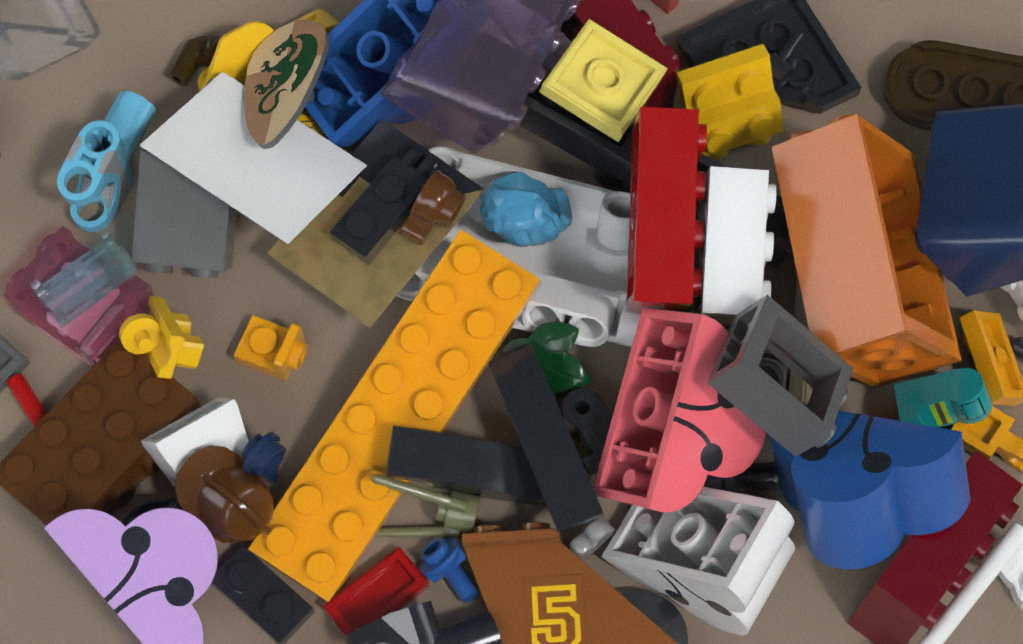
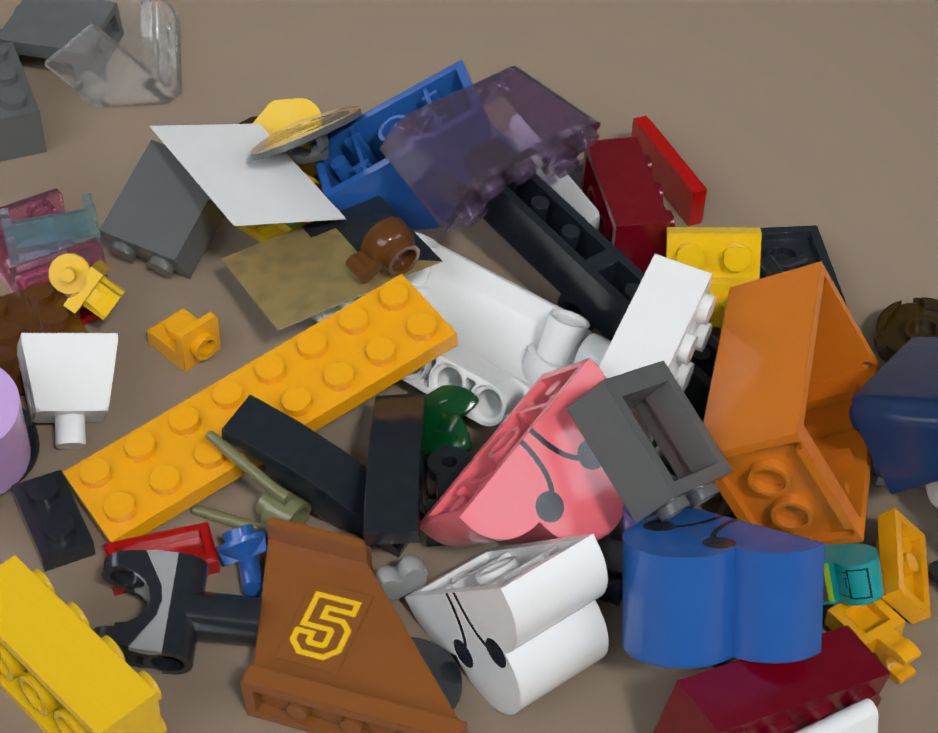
camera: 20 degrees right, 25 degrees down
(103, 159) = (116, 149): medium azure connector -> none
(224, 495) = (63, 411): reddish brown piece -> none
(264, 456) = (118, 387): dark blue plate -> none
(384, 205) = (327, 251): black hinge -> none
(524, 210) = (472, 294): dark azure hair -> none
(603, 80) = (591, 199): light yellow plate -> none
(663, 209) = (598, 282): red brick -> none

